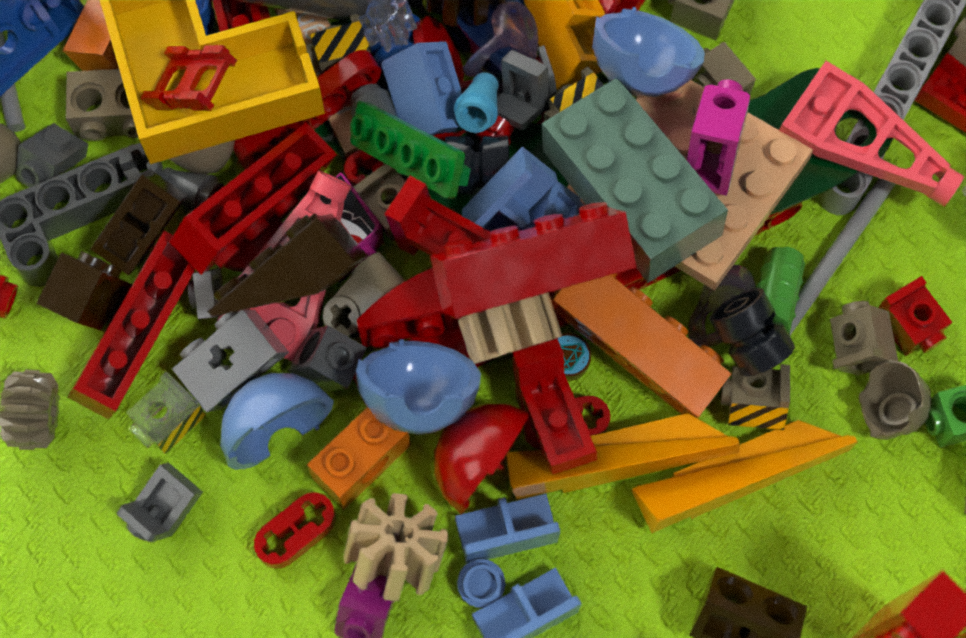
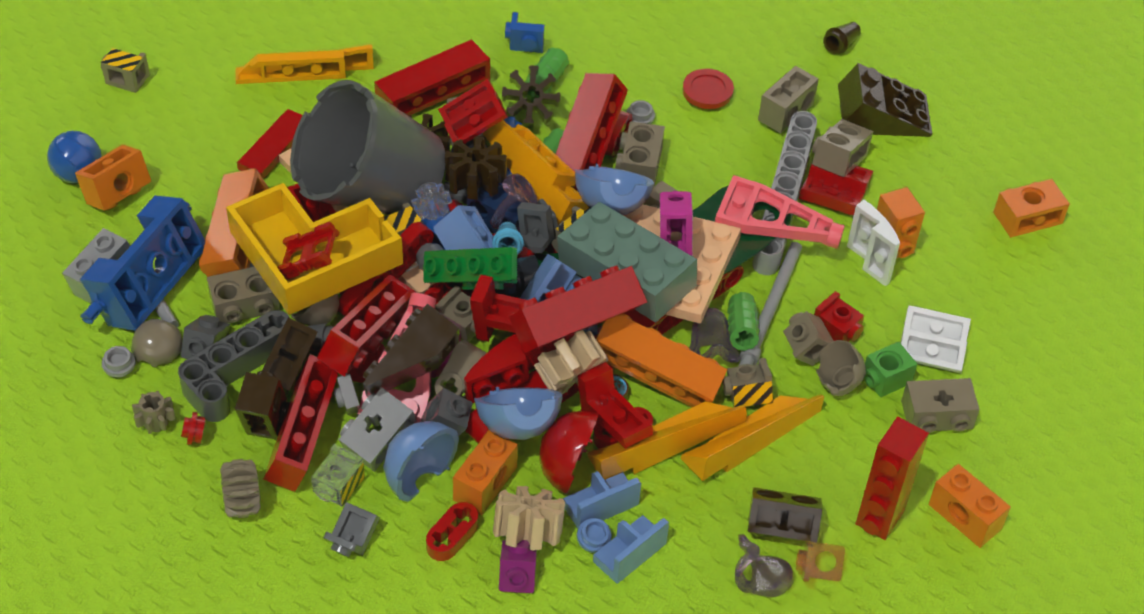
camera: 15 degrees left, 20 degrees down
(750, 328) = (734, 337): black wheel -> none

